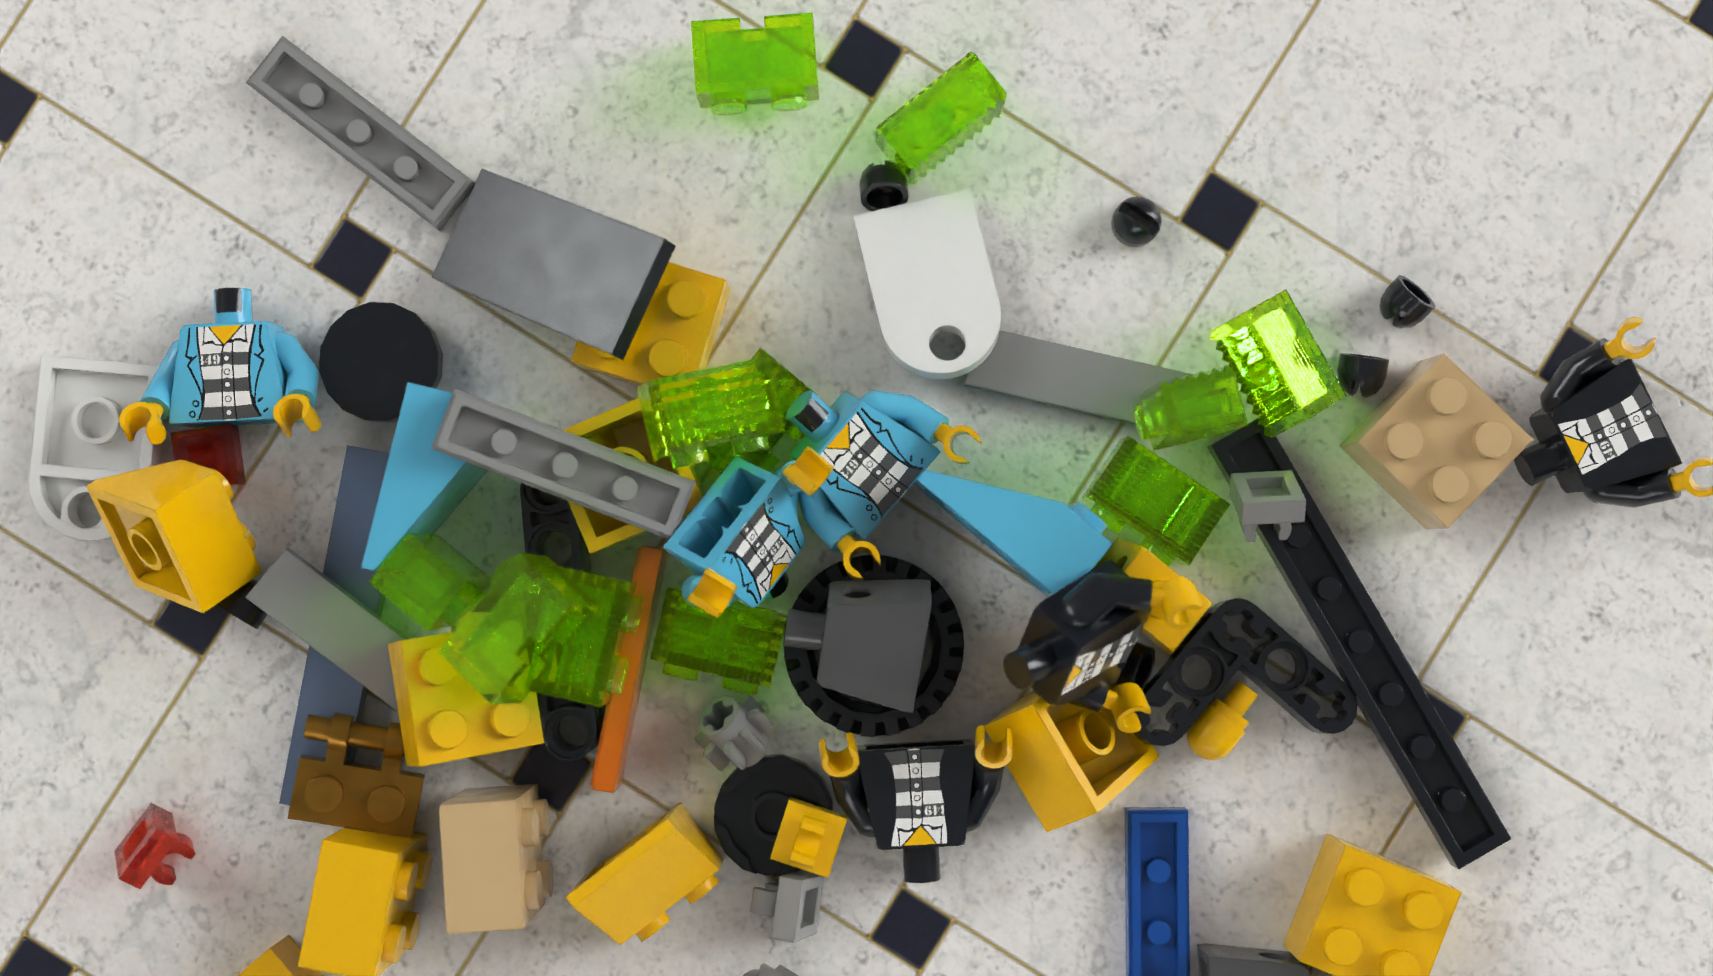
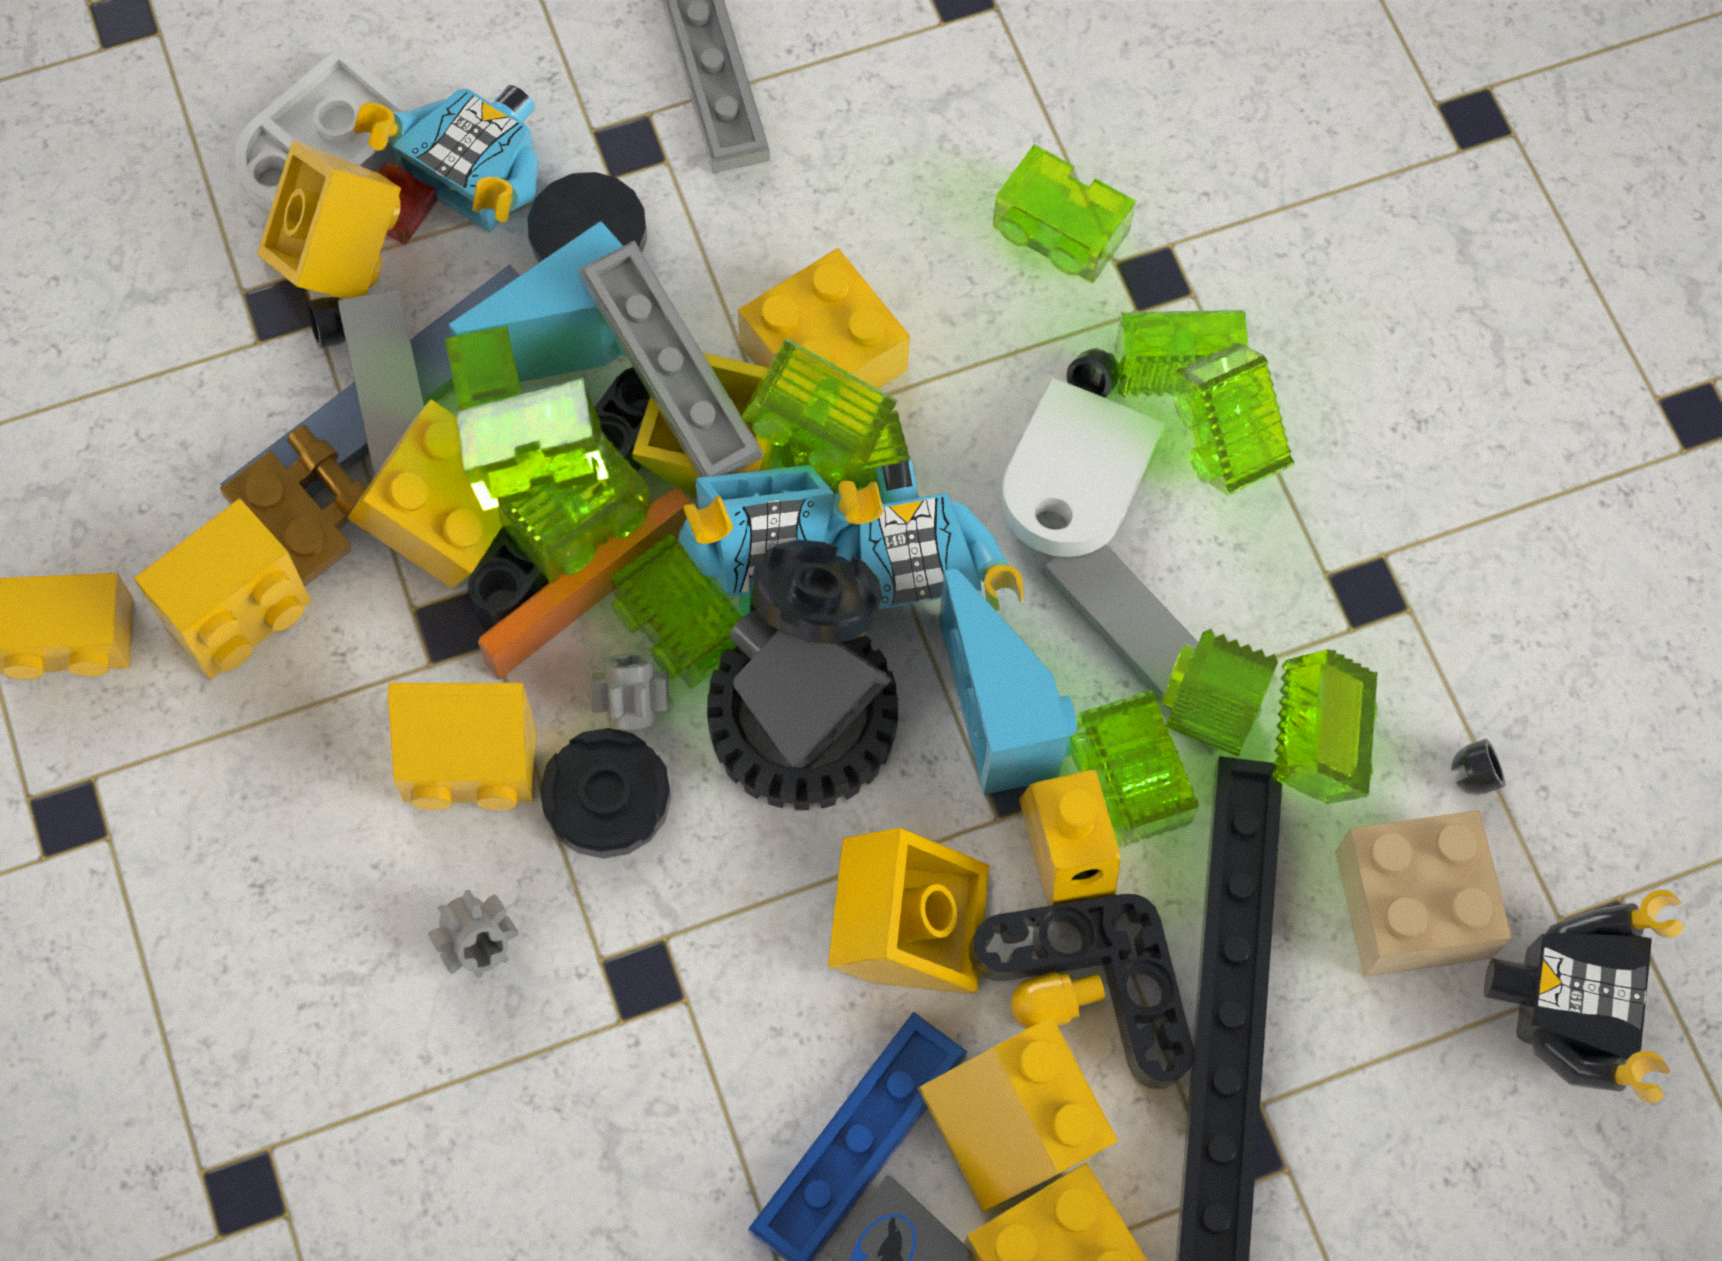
camera: 35 degrees right, 20 degrees down
(147, 845) = (93, 440): clear red tile -> none
(494, 858) = (354, 633): tan brick -> none
(554, 262) = (784, 234): tile -> none
(792, 904) = (562, 868): light grey tile -> none
(808, 837) = (621, 821): yellow tile -> none
(829, 571) = (815, 592): none -> black tile
(918, 793) = (742, 852): torso -> none
(1029, 156) = (1232, 419): none -> clear neon green brick
(1086, 636) = (987, 795): black torso -> none
(1129, 230) = (1278, 551): black hinge -> none
(1138, 666) = (1011, 876): black hinge -> none
(1263, 836) = (1017, 1114): none -> yellow slope
(1267, 499) = (1234, 820): light grey tile -> none
(1363, 371) = (1398, 796): black hinge -> none

